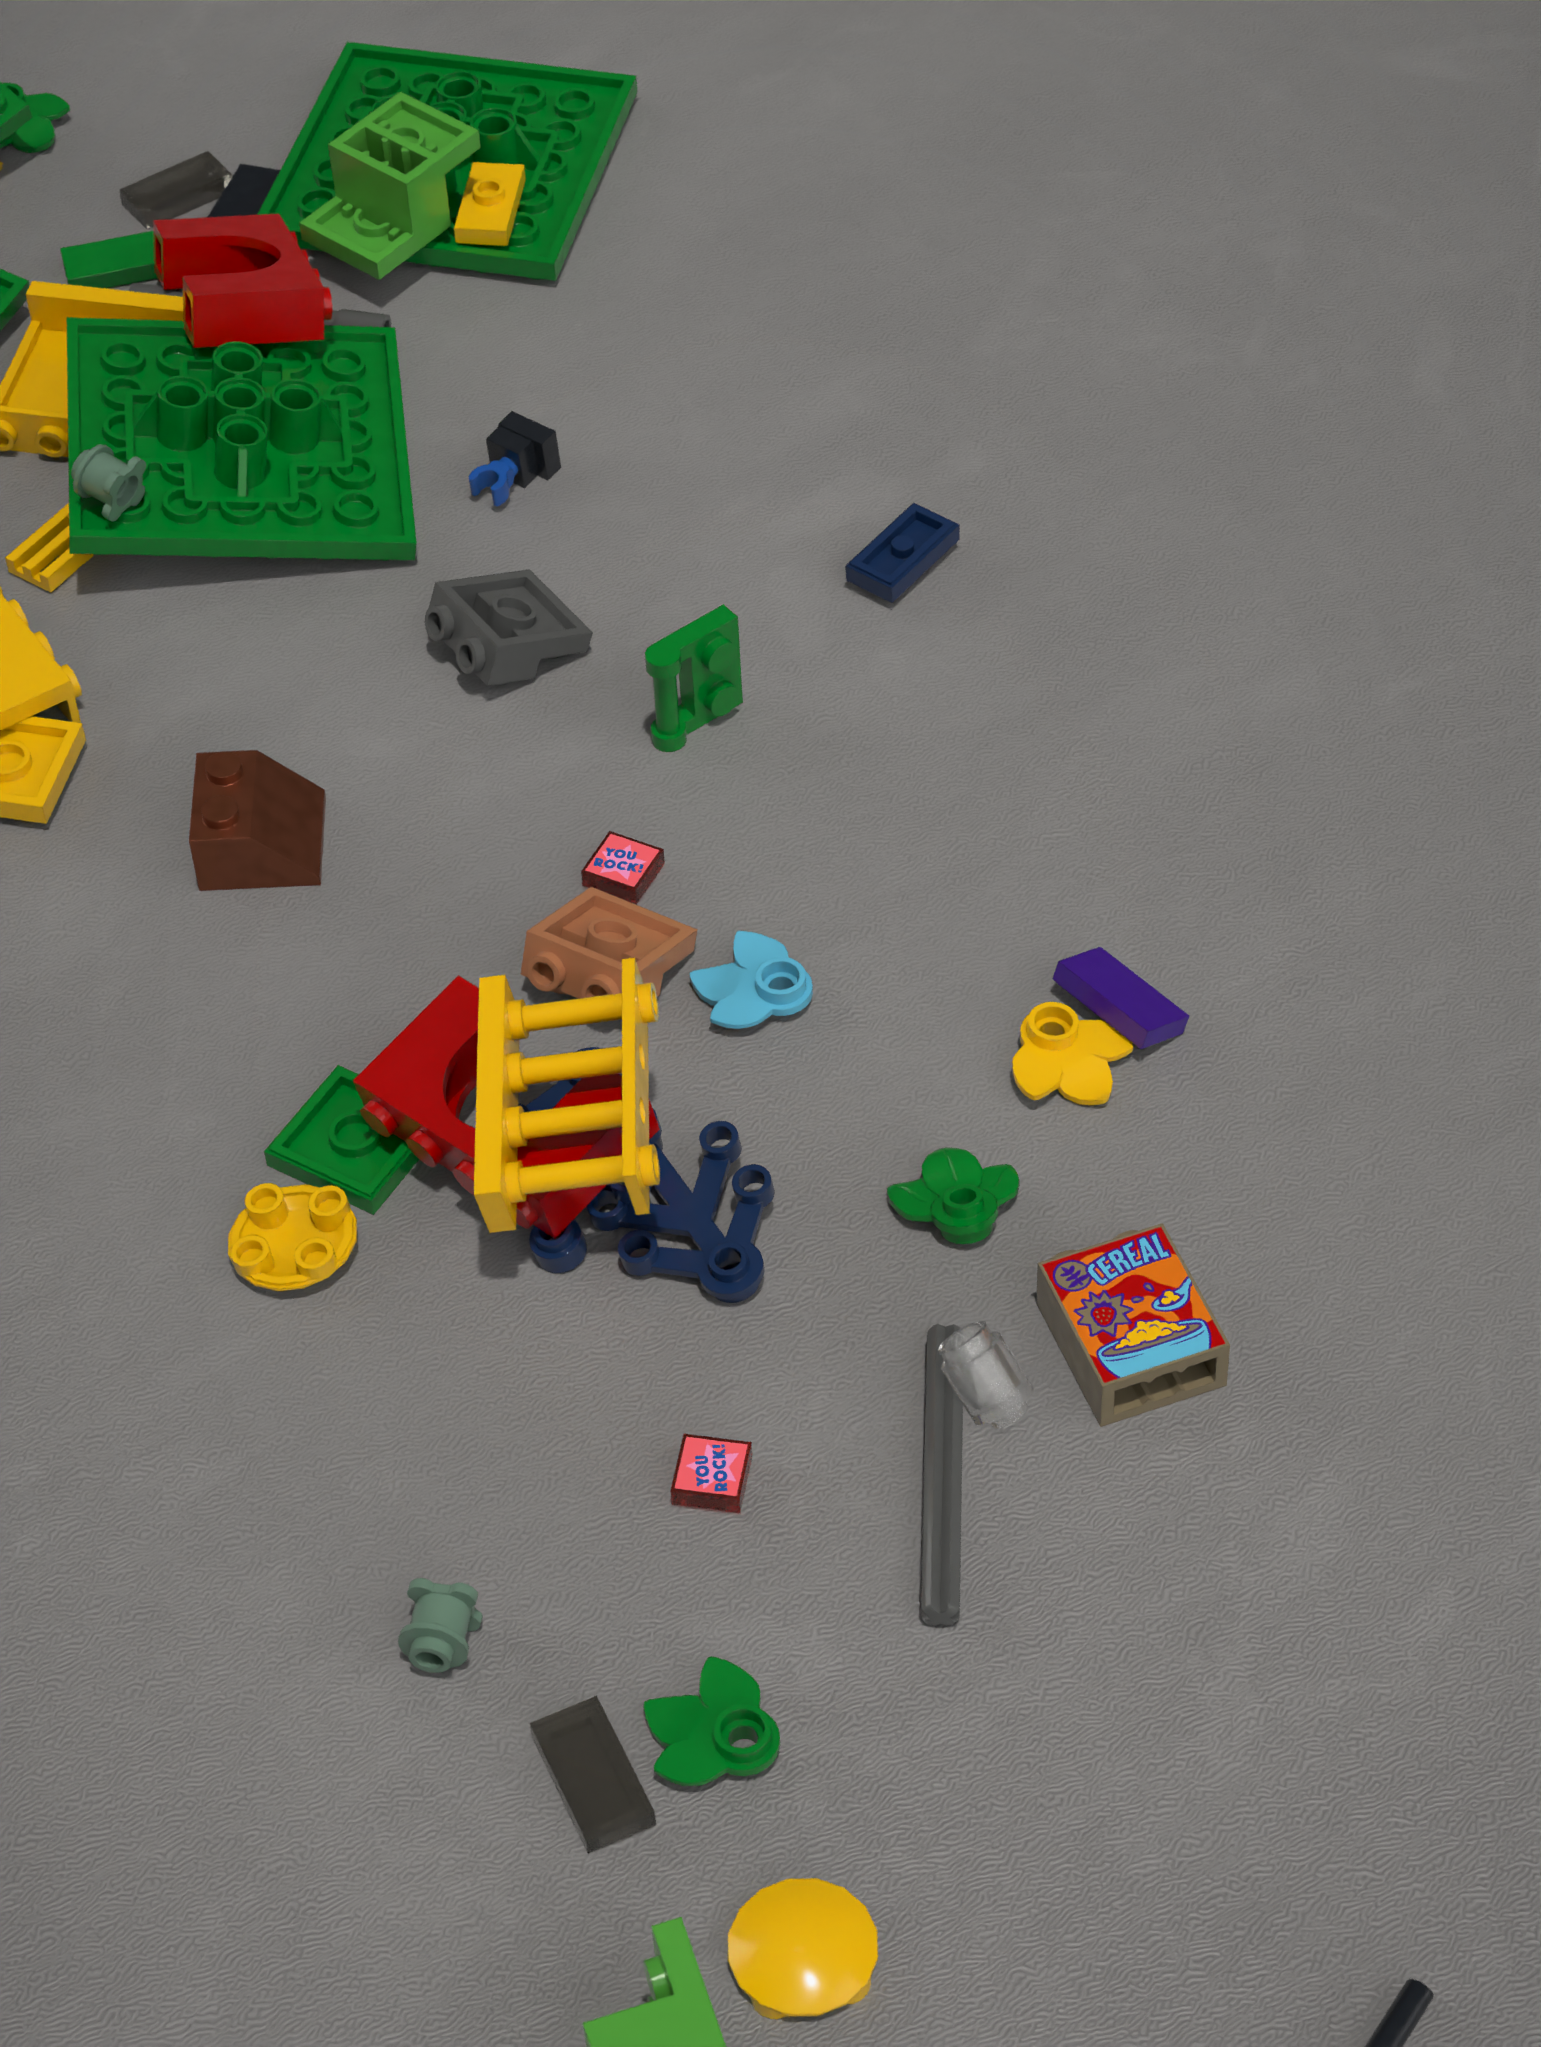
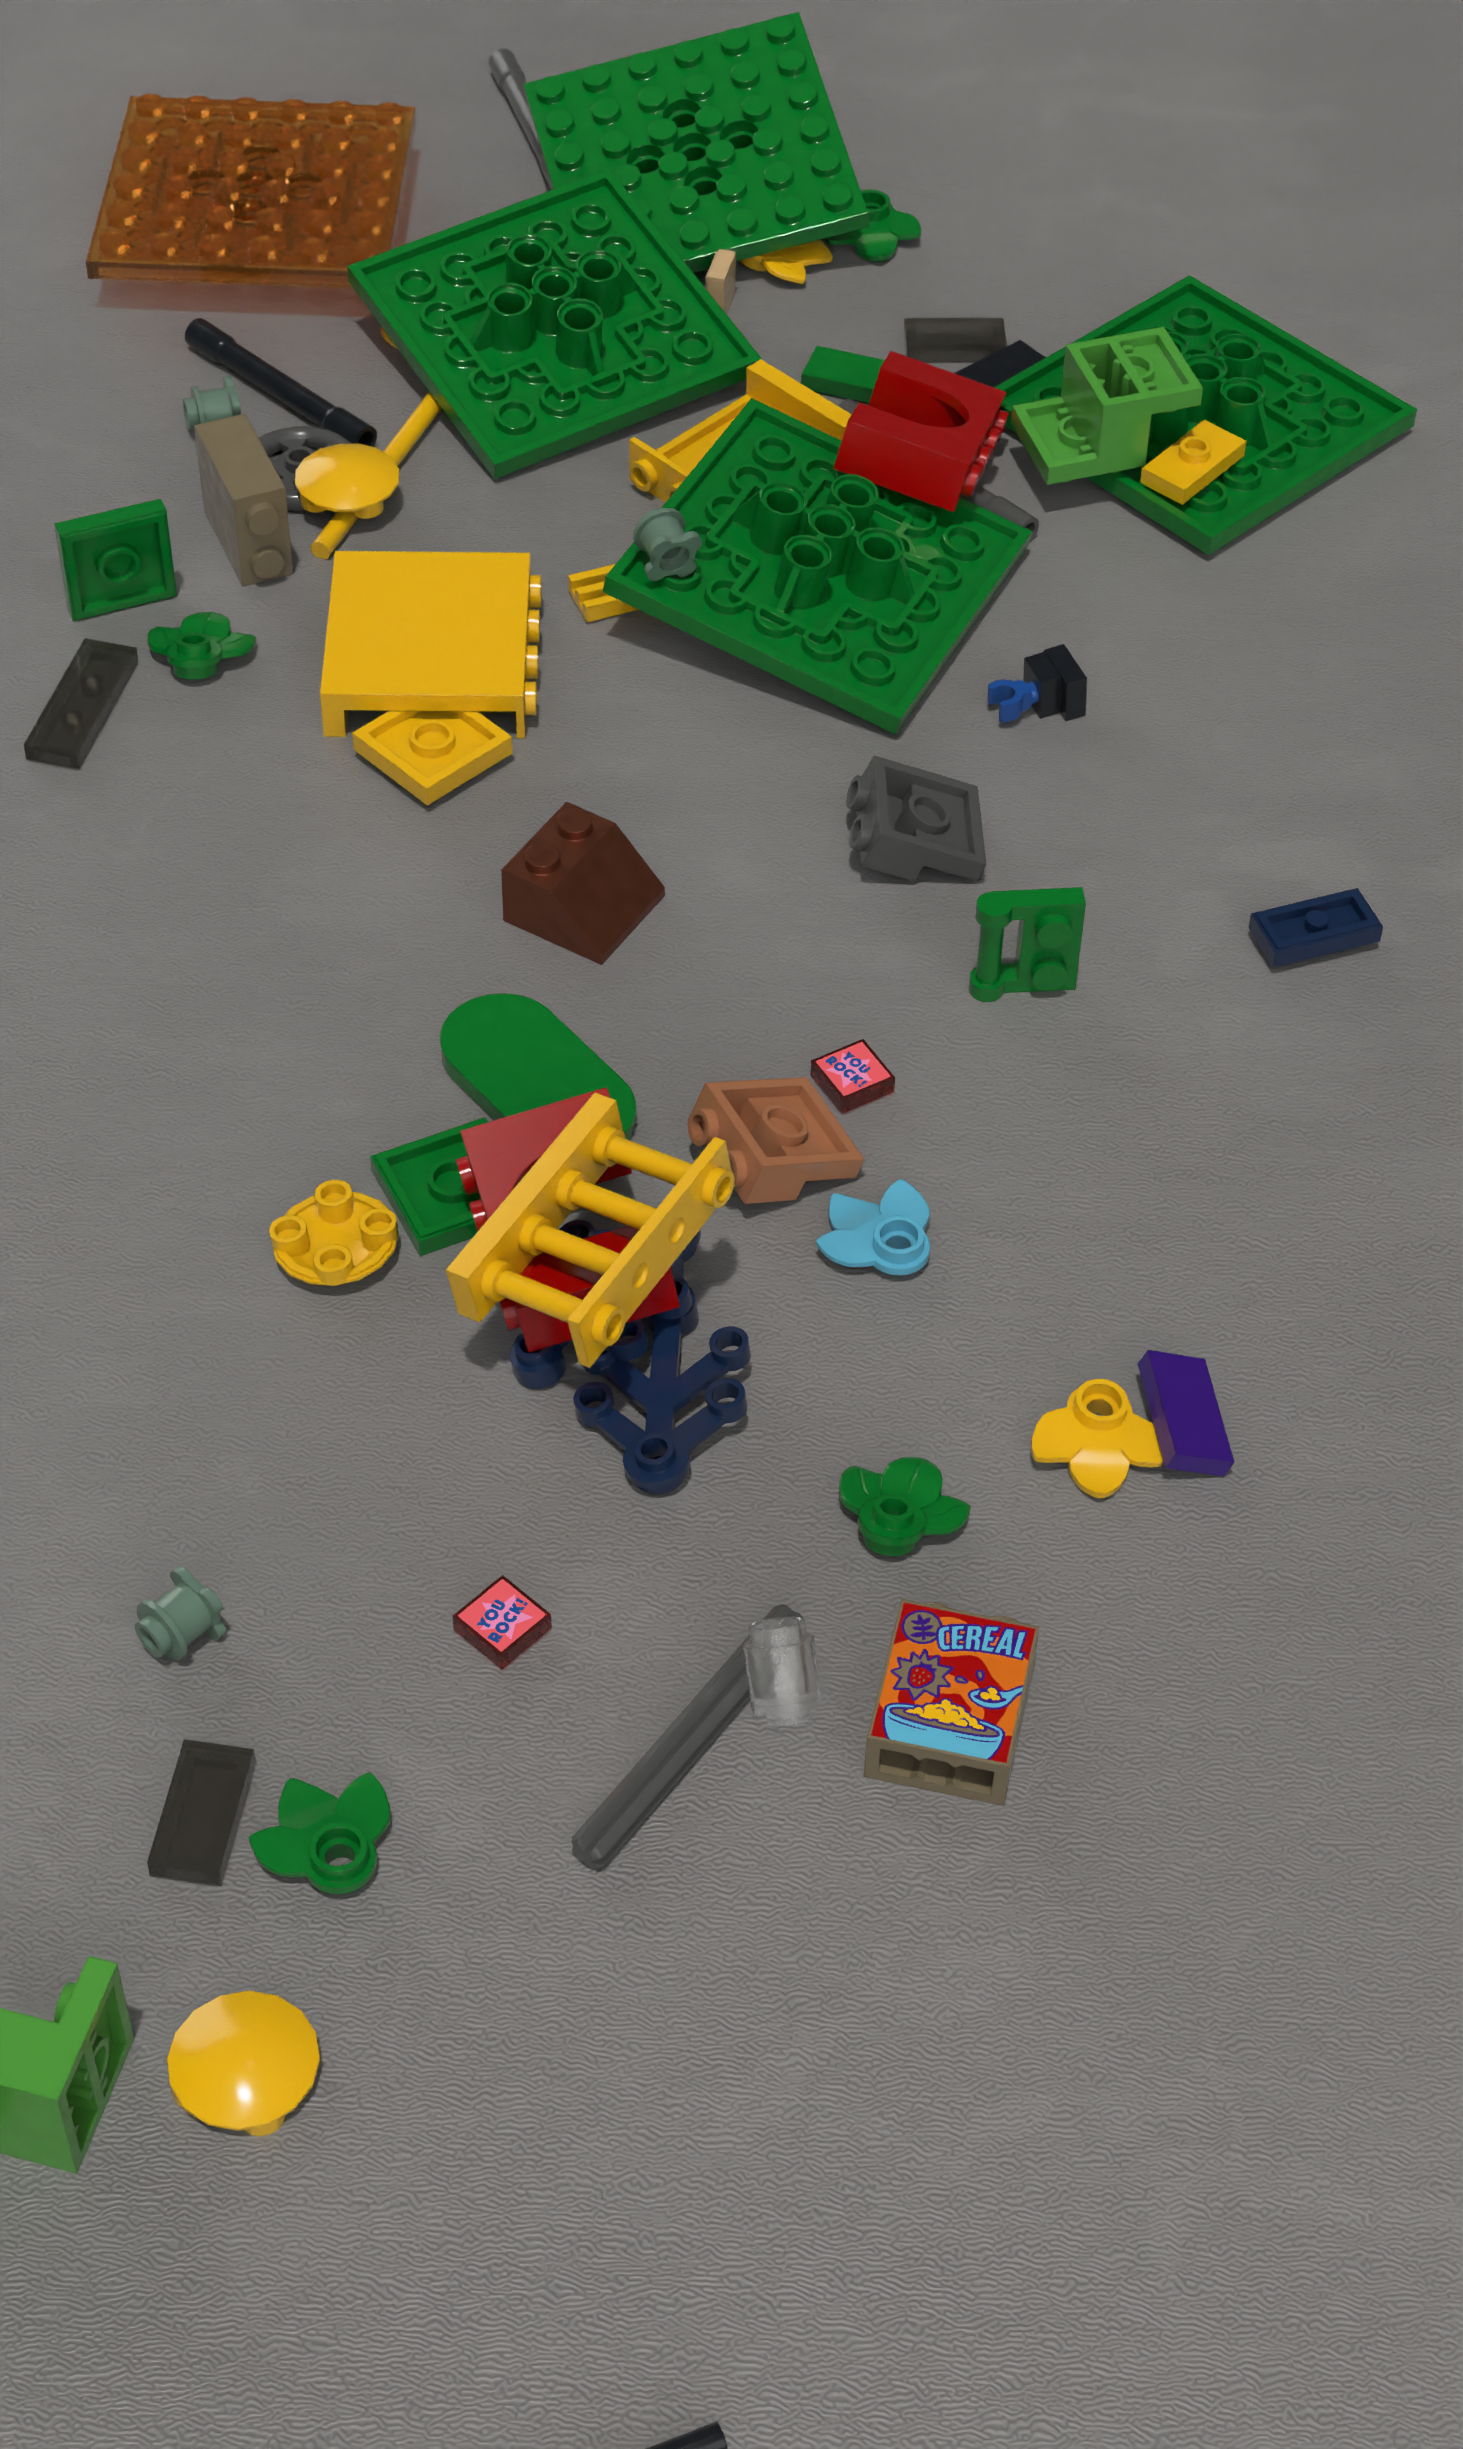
camera: 30 degrees right, 0 degrees up
(330, 1001) = (522, 1057): none -> green tile

